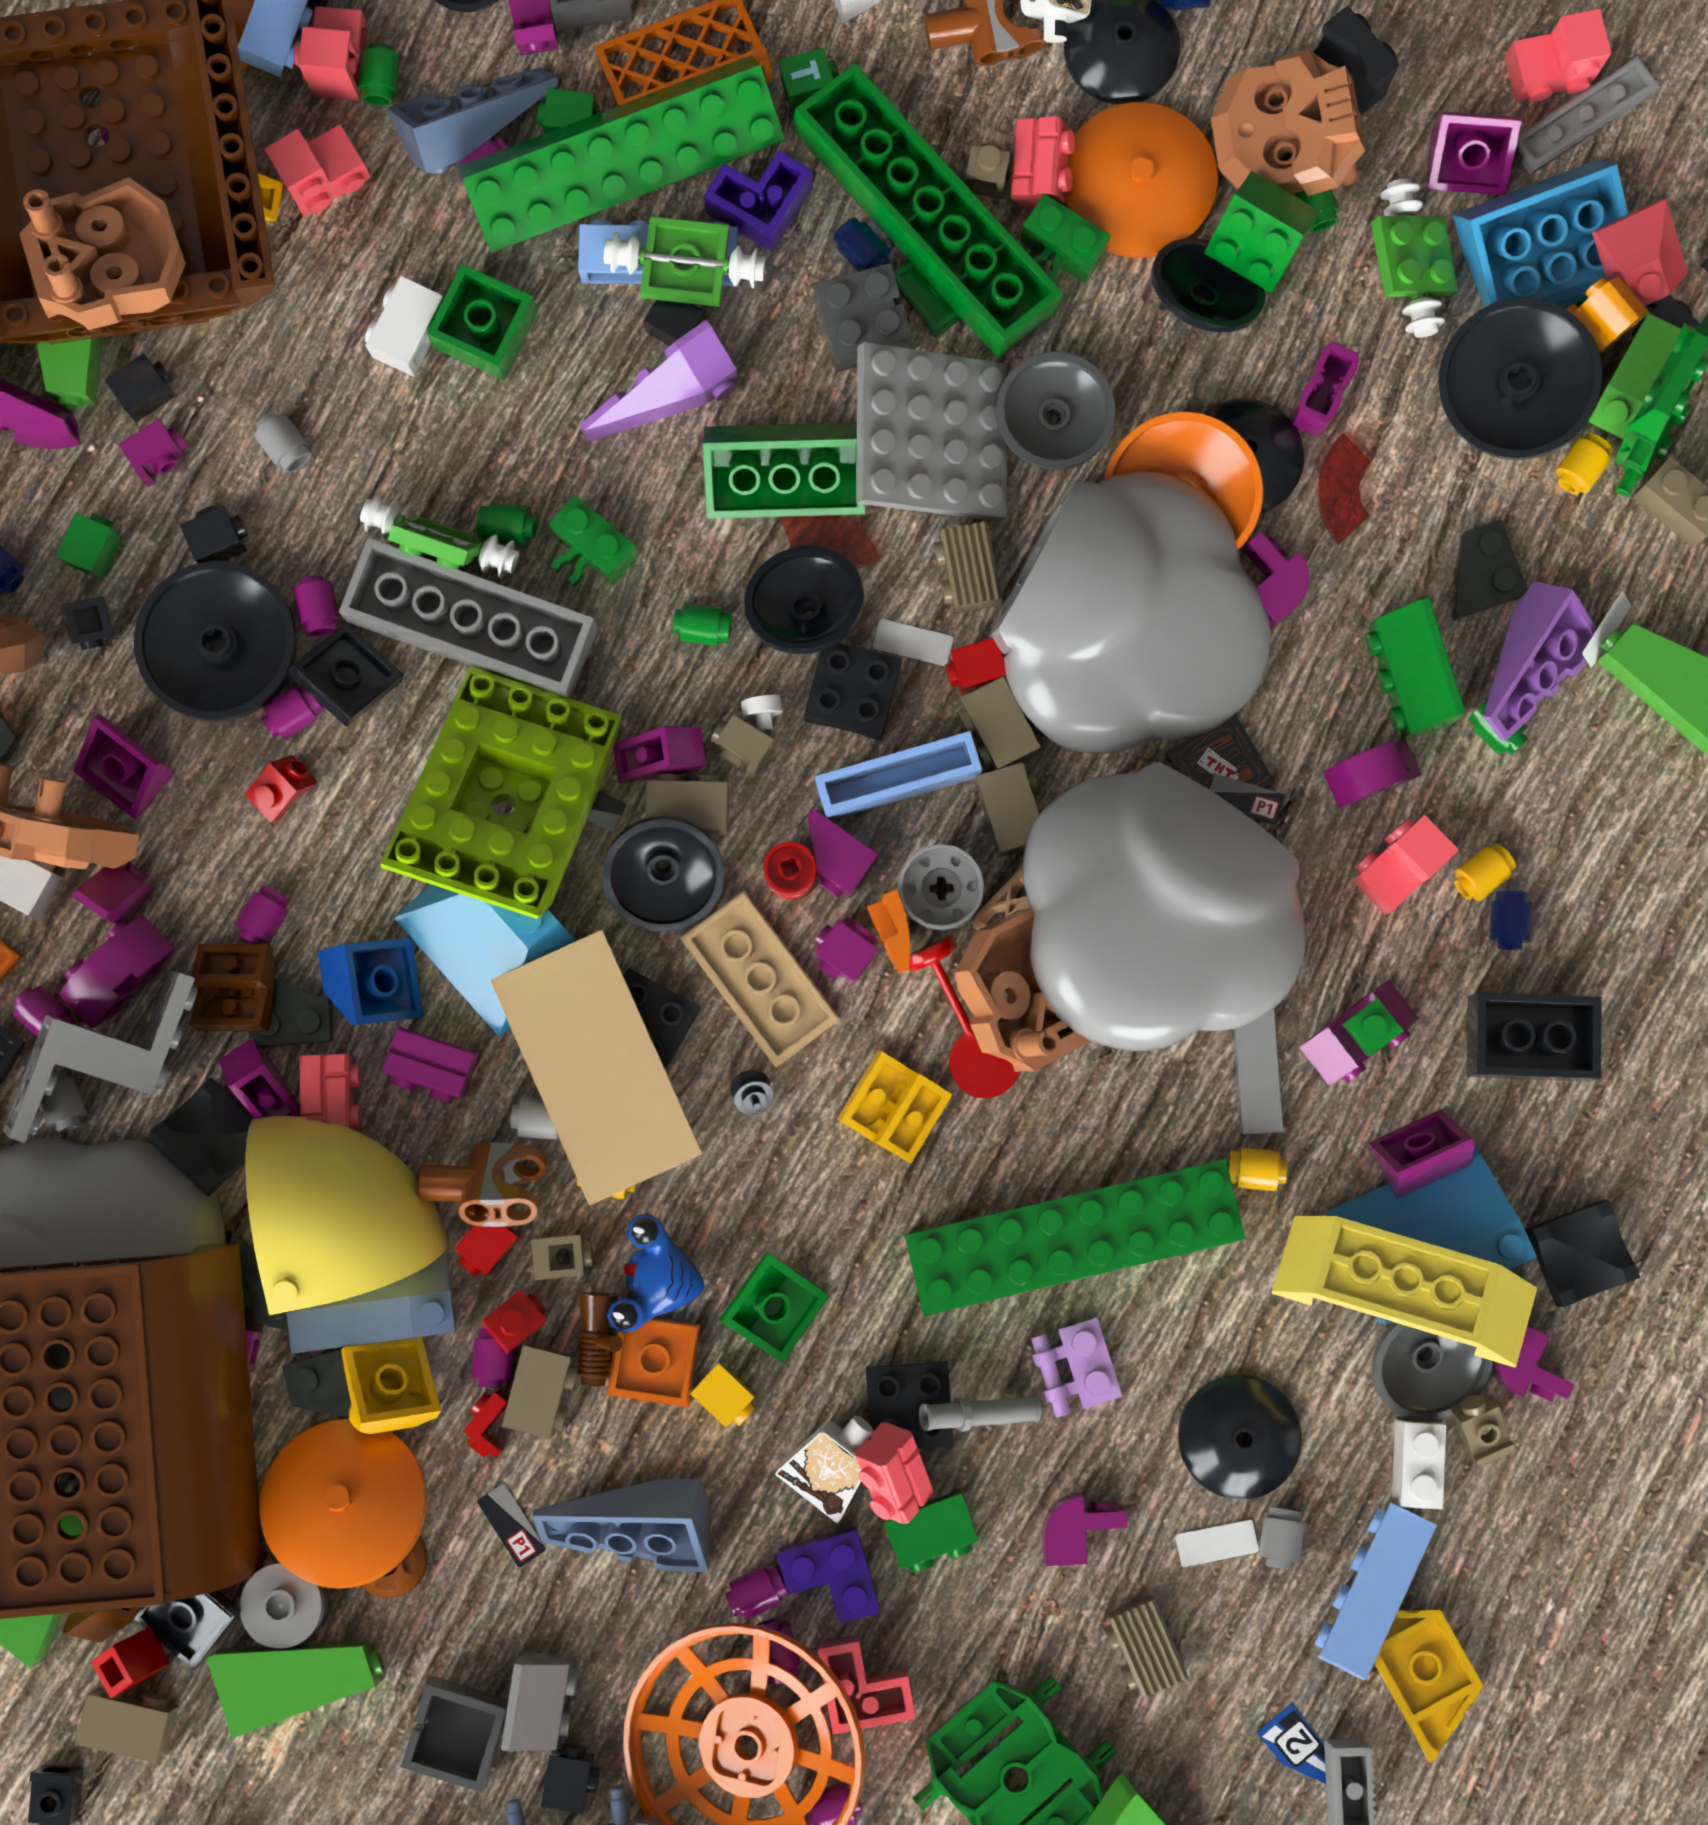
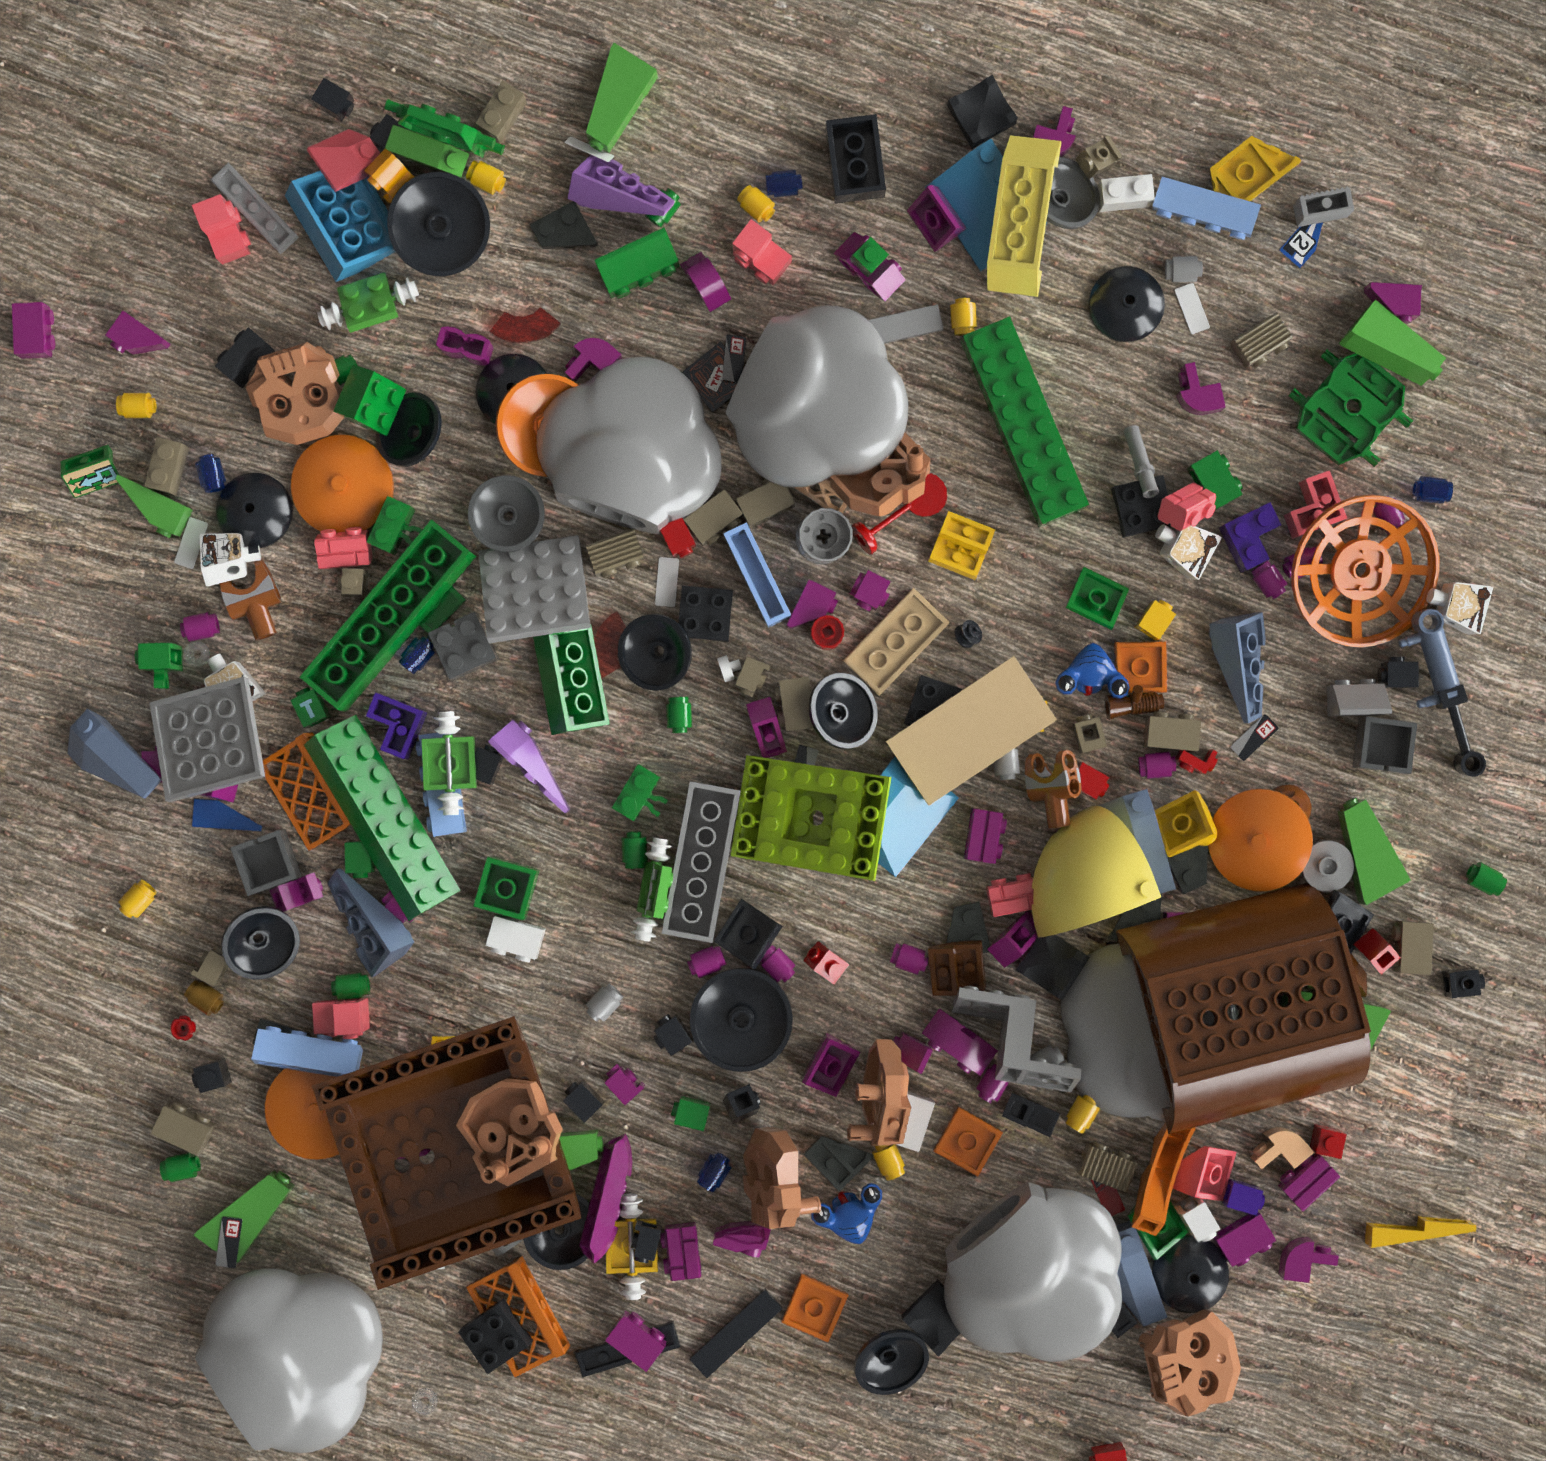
camera: 100 degrees left, 5 degrees up
(317, 169) = (421, 1012): coral brick -> none
(372, 980) = (939, 881): blue slope -> none
(515, 1320) = (1133, 754): red bracket -> none
(892, 928) = (855, 561): orange slope -> none
(1088, 1363) = (1098, 401): lavender plate -> none
(1472, 152) = (293, 275): magenta slope -> none

